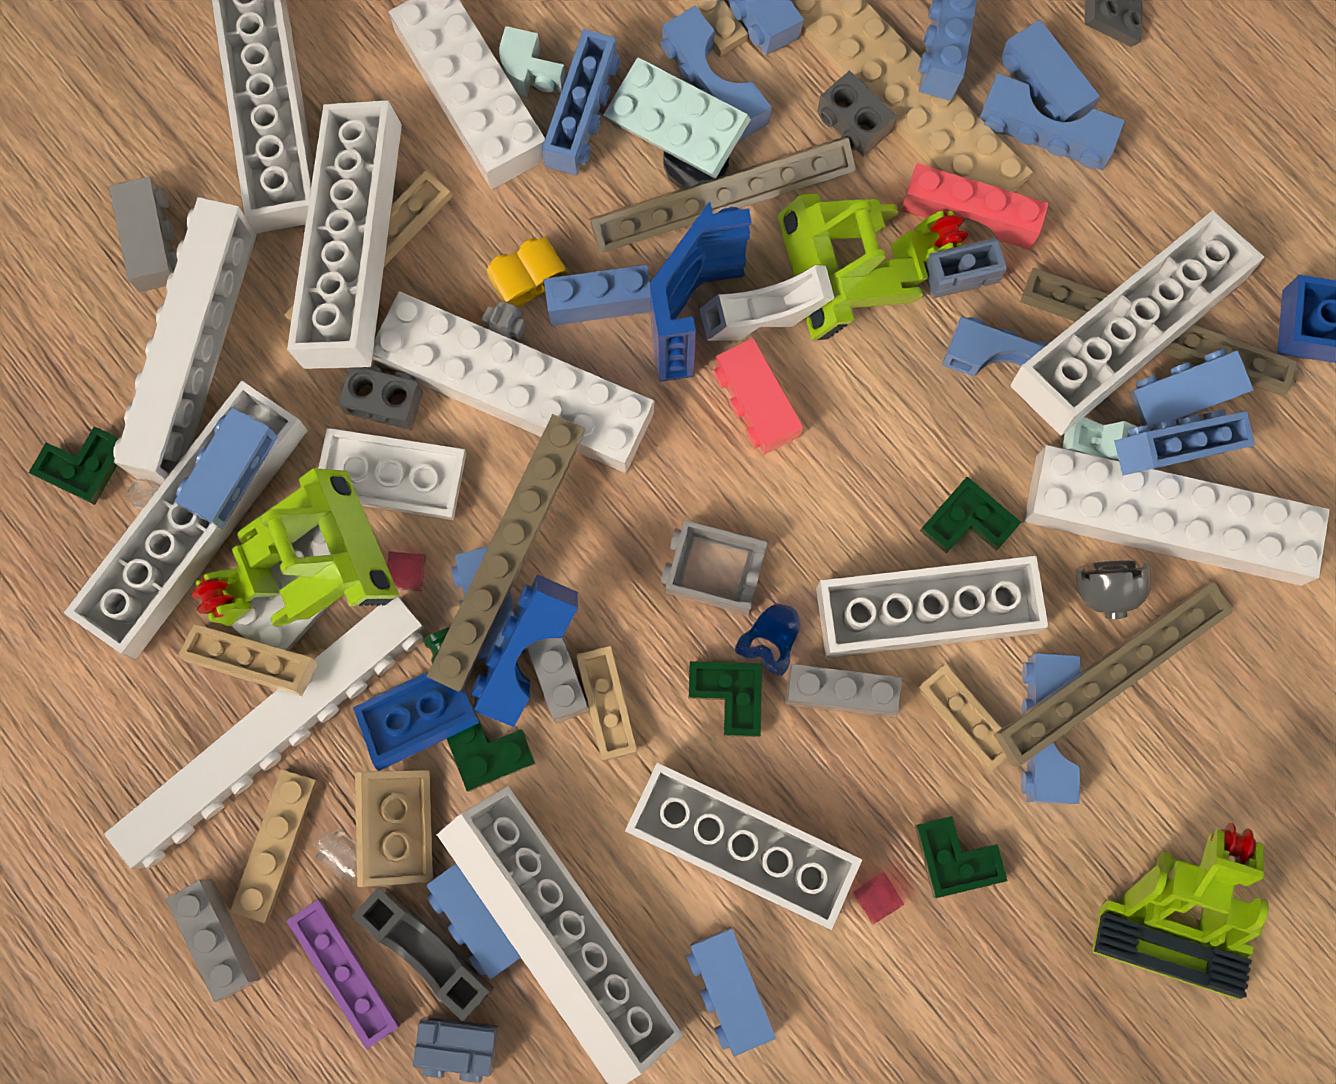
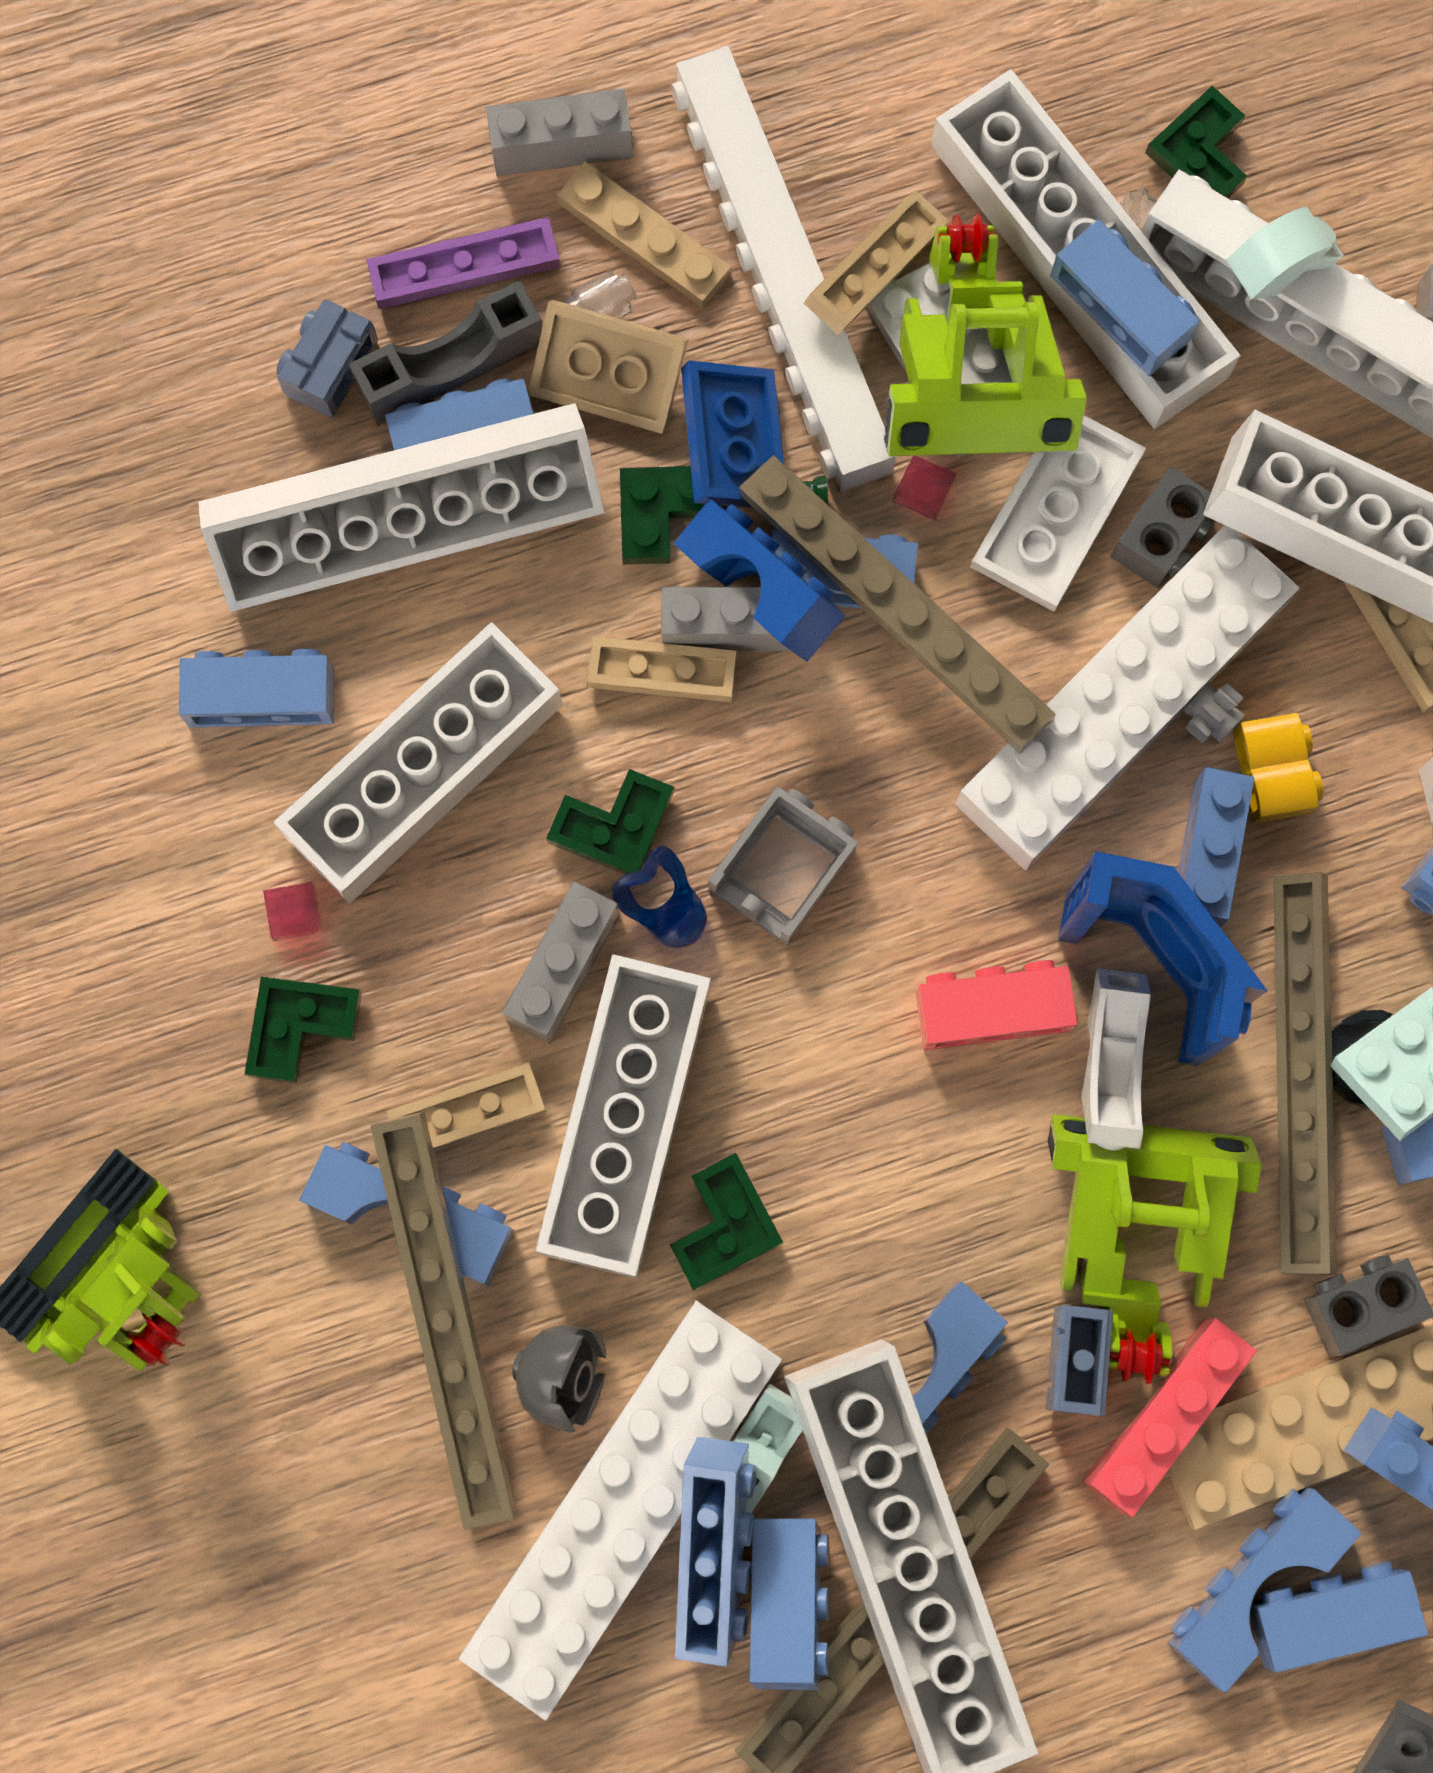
camera: 110 degrees right, 0 degrees up
(164, 363) = (1283, 252): none -> light aqua brick

